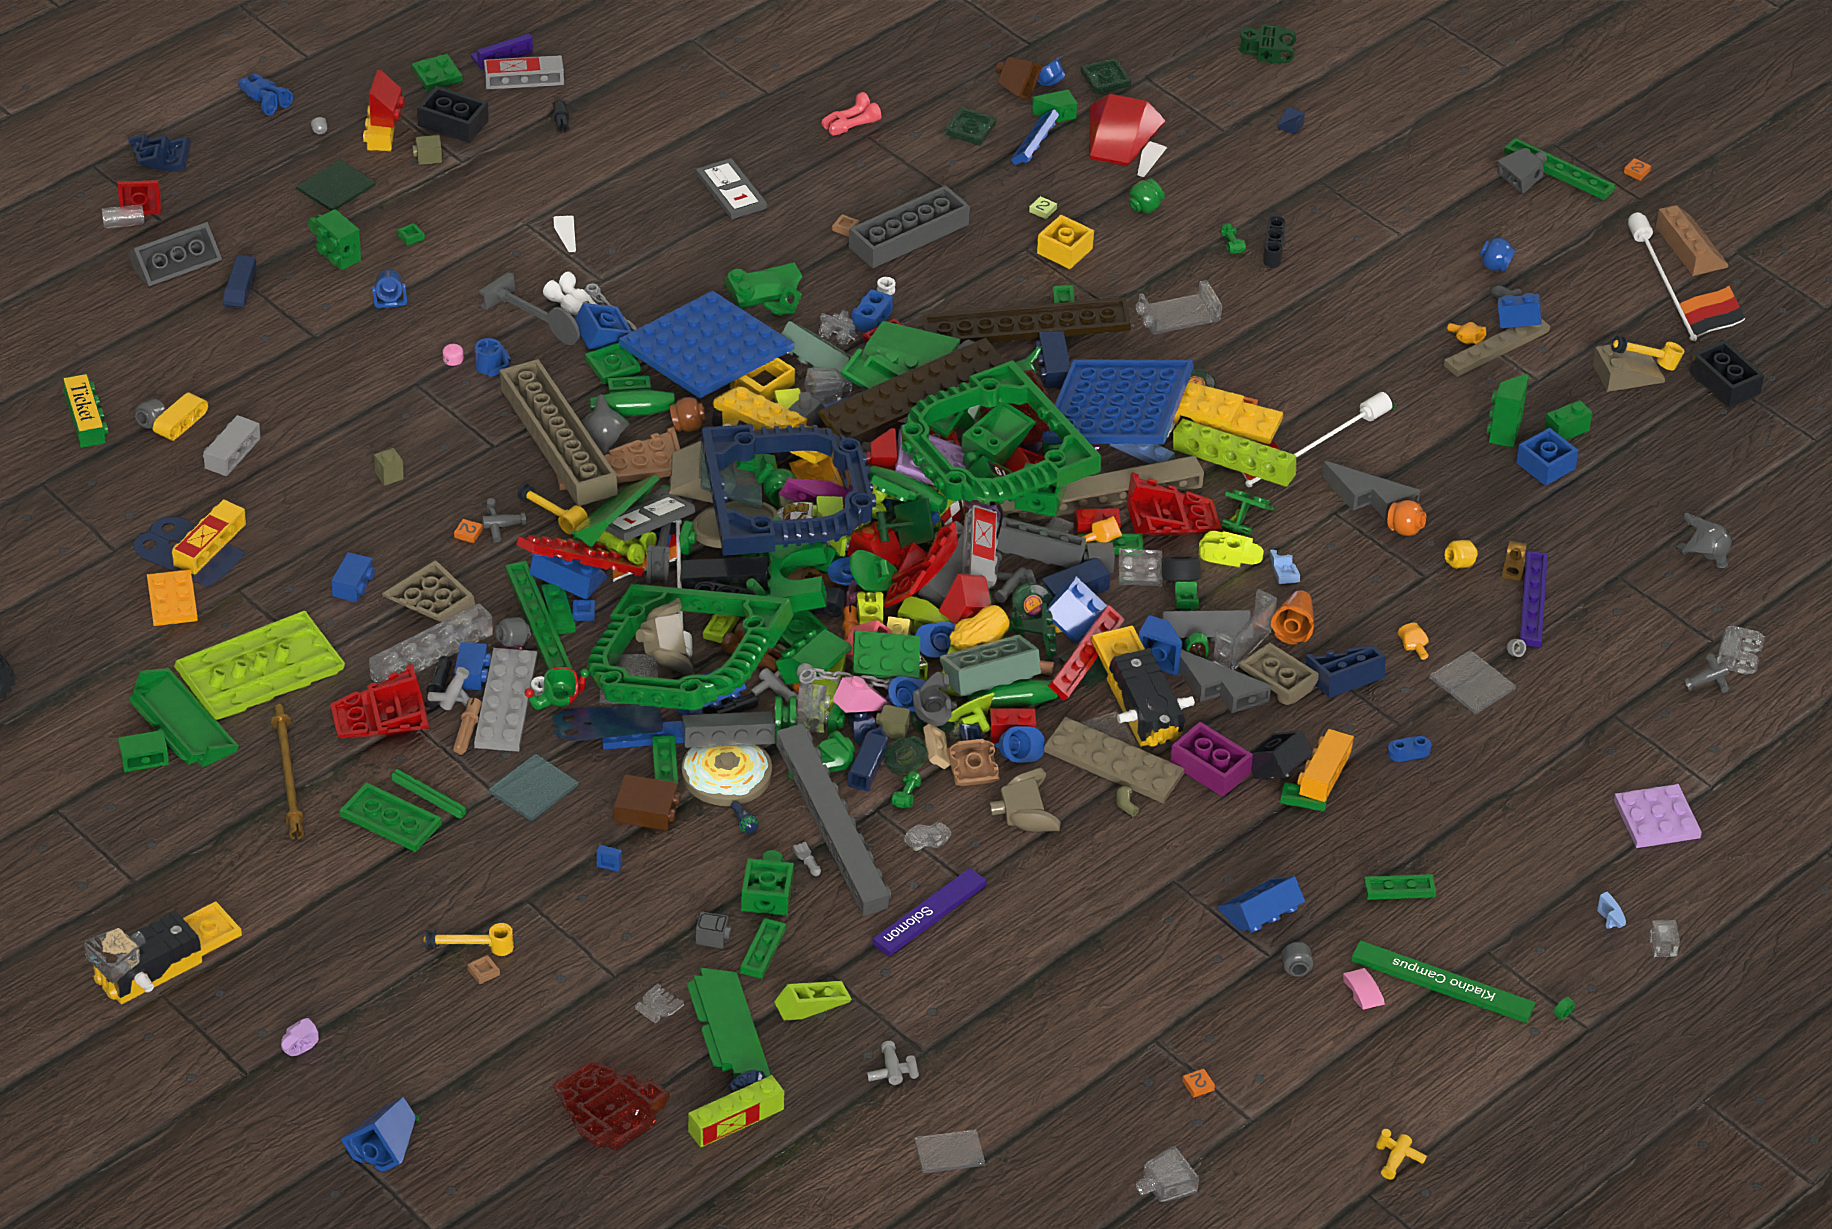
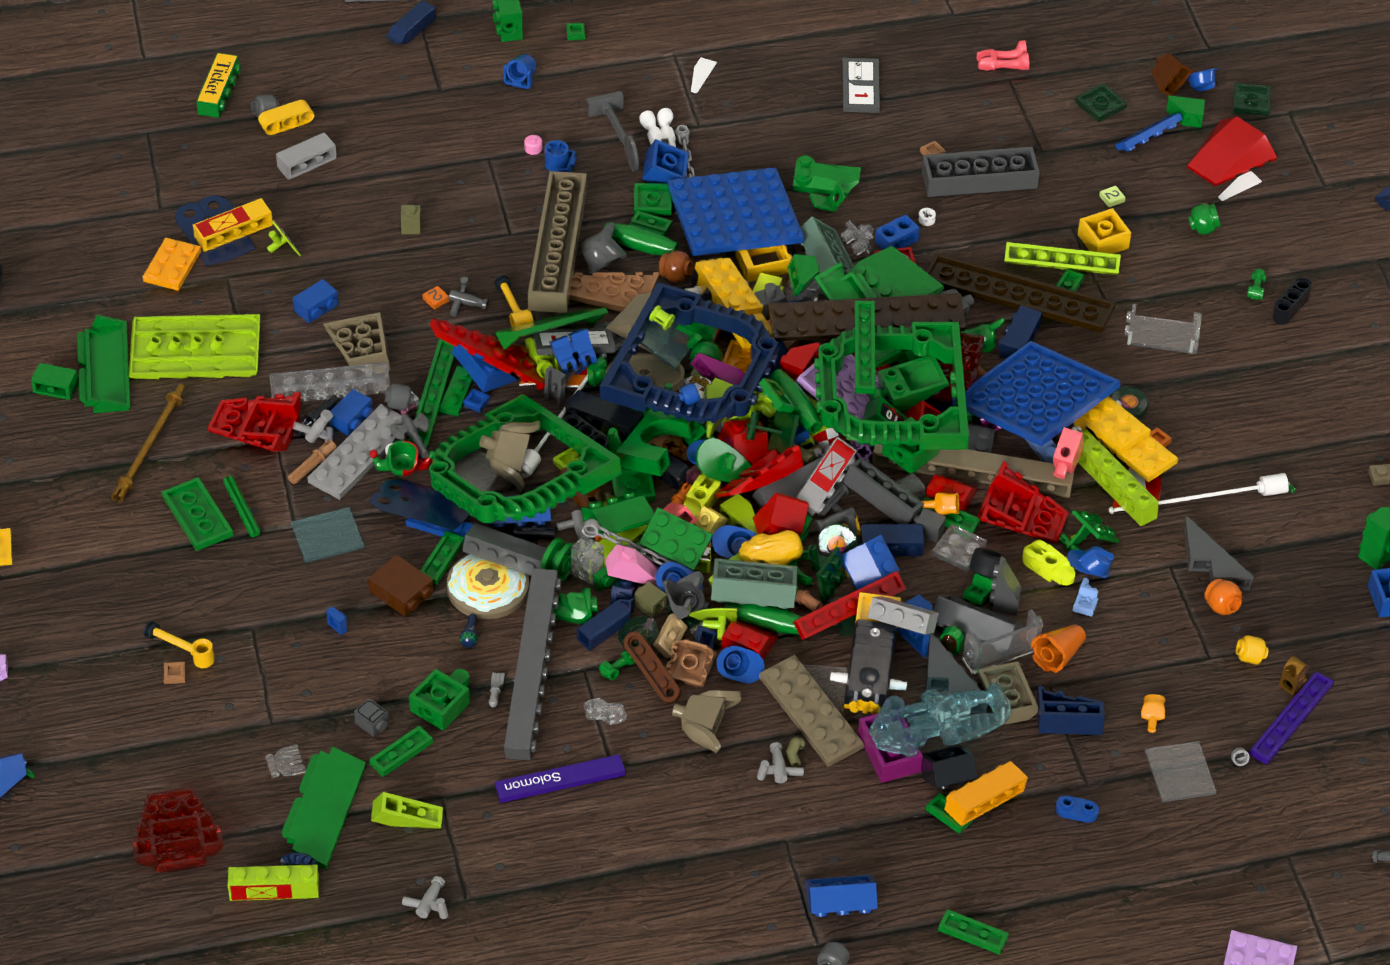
camera: 30 degrees right, 5 degrees up
(271, 528) = (279, 241): none -> lime shield
(548, 656) = (411, 428): none -> flat silver piece
(660, 514) = (578, 343): none -> blue legs
(735, 456) = (662, 317): none -> lime bush
(817, 514) = (689, 394): none -> blue piece
(825, 372) = (802, 272): none -> green slope
(945, 778) = (652, 667): none -> reddish brown plate
(947, 412) = (865, 347): none -> green plate
(1043, 277) = (1062, 258): none -> lime brick
(1120, 819) = (778, 766): none -> light grey piece
(1154, 636) = (903, 615): none -> light grey brick
(1187, 441) = (1067, 452): none -> coral torso
(1215, 590) = (1007, 589): none -> dark grey slope
(1242, 713) = (937, 715): none -> clear light blue piece
(1270, 530) = (1092, 561): none -> blue piece

